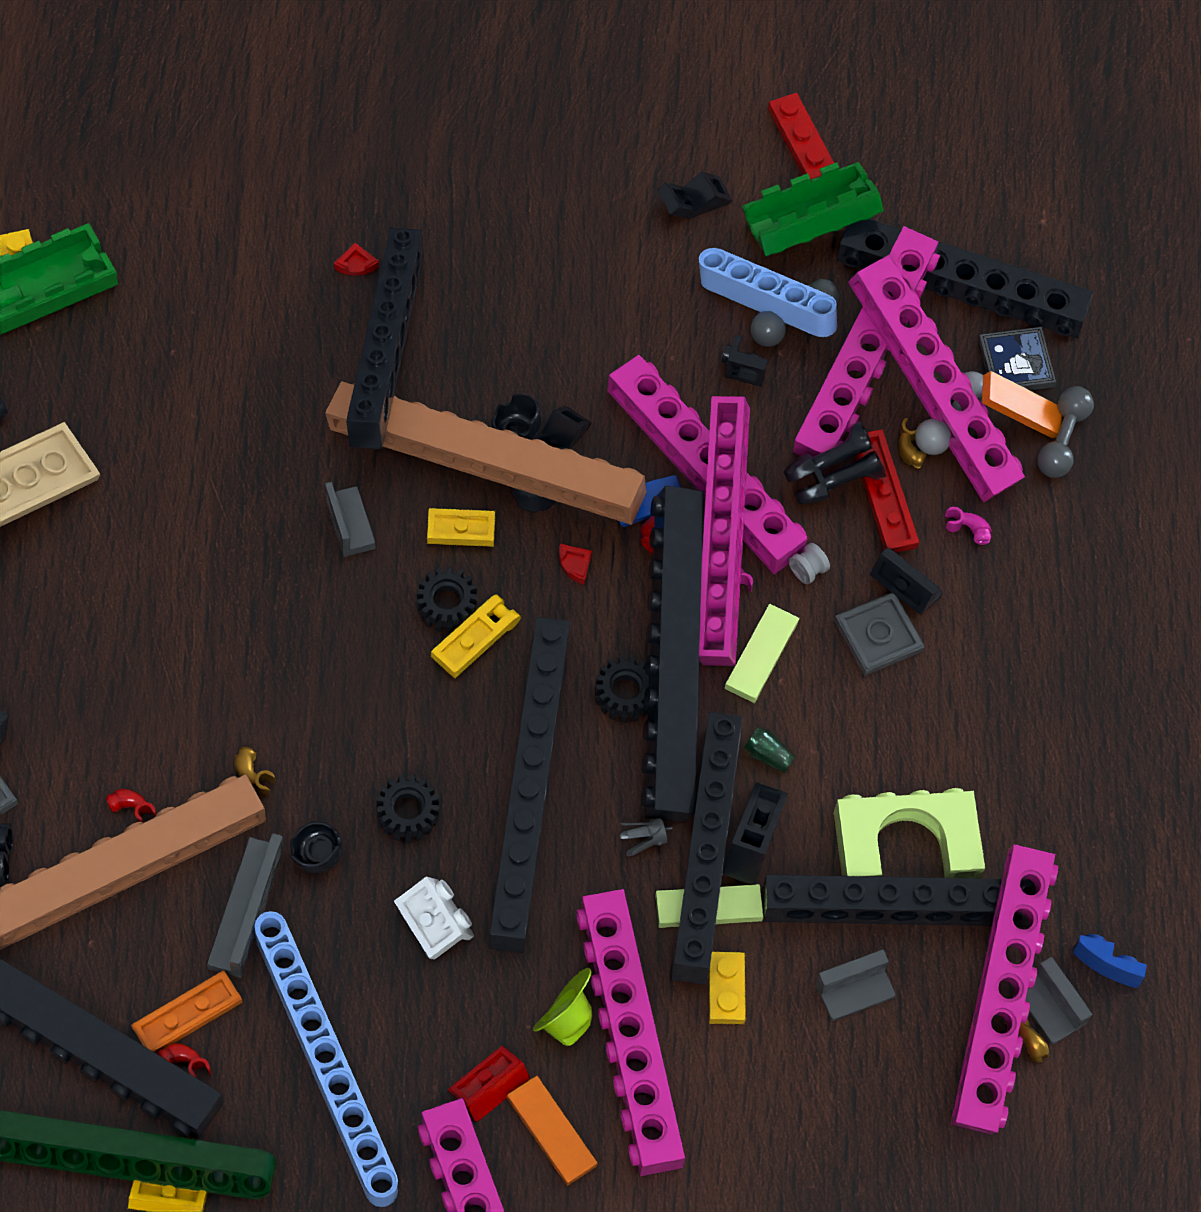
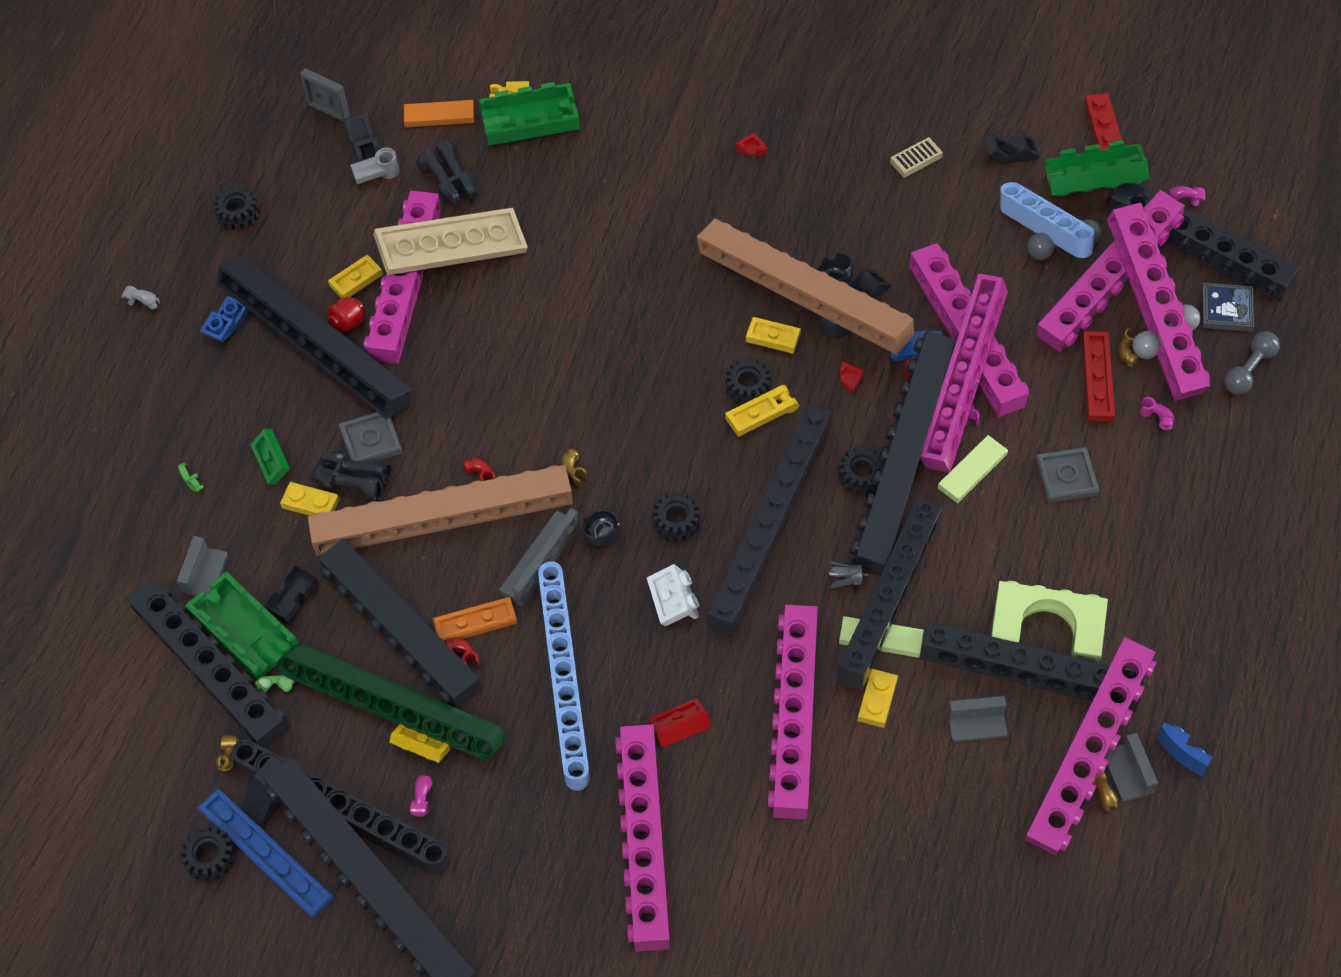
camera: 25 degrees right, 5 degrees down
(349, 520) = (694, 314): dark grey panel -> none
(385, 339) = (753, 195): black brick -> none
(552, 1130) = (715, 767): orange tile -> none
(570, 1012) = (752, 688): lime piece -> none
(575, 234) = (916, 157): none -> tan tile
(742, 366) = (1015, 268): black bracket -> none
(754, 833) = (929, 593): black slope -> none
(769, 749) = (957, 535): clear green cone -> none
(809, 563) = (1026, 413): light grey wheel -> none
(855, 444) = (1089, 351): black piece -> none
(905, 581) = (1097, 440): black panel -> none
(922, 215) = (1182, 192): none -> dark pink arm
(1021, 404) = (1220, 334): tile -> none

